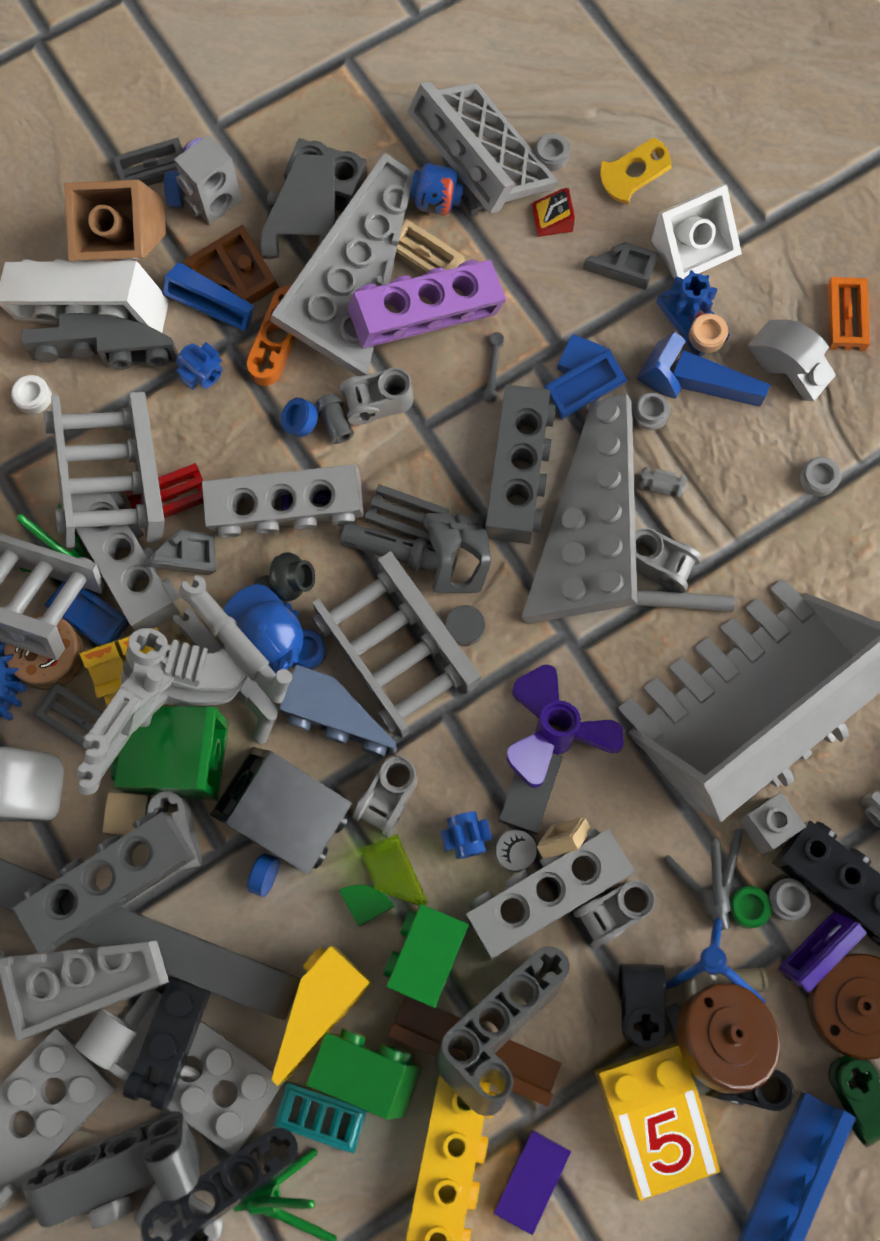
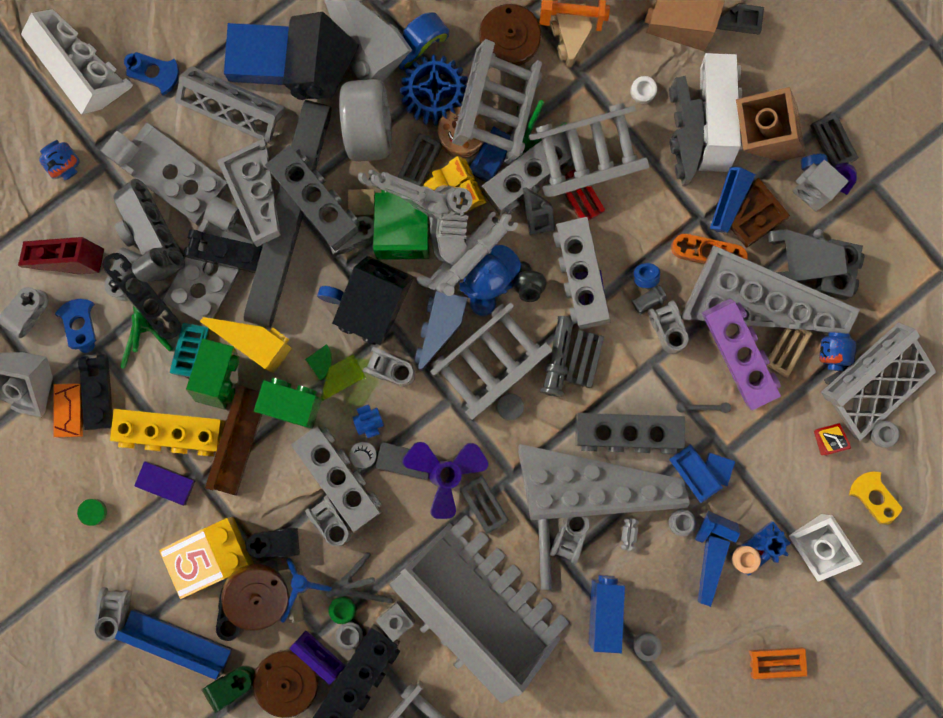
camera: 80 degrees right, 10 degrees up
(199, 365) = (676, 201): blue gear -> none
(448, 535) = (571, 390): dark grey piece -> none
(508, 1018) = (254, 458): dark grey beam -> none
(563, 837) = (372, 484): tan tile -> none
(576, 692) = (496, 524): none -> dark grey tile
(625, 264) = (798, 496): dark grey tile -> none
(778, 517) = (606, 614): none -> blue brick
(794, 350) = (736, 622): light grey brick -> none

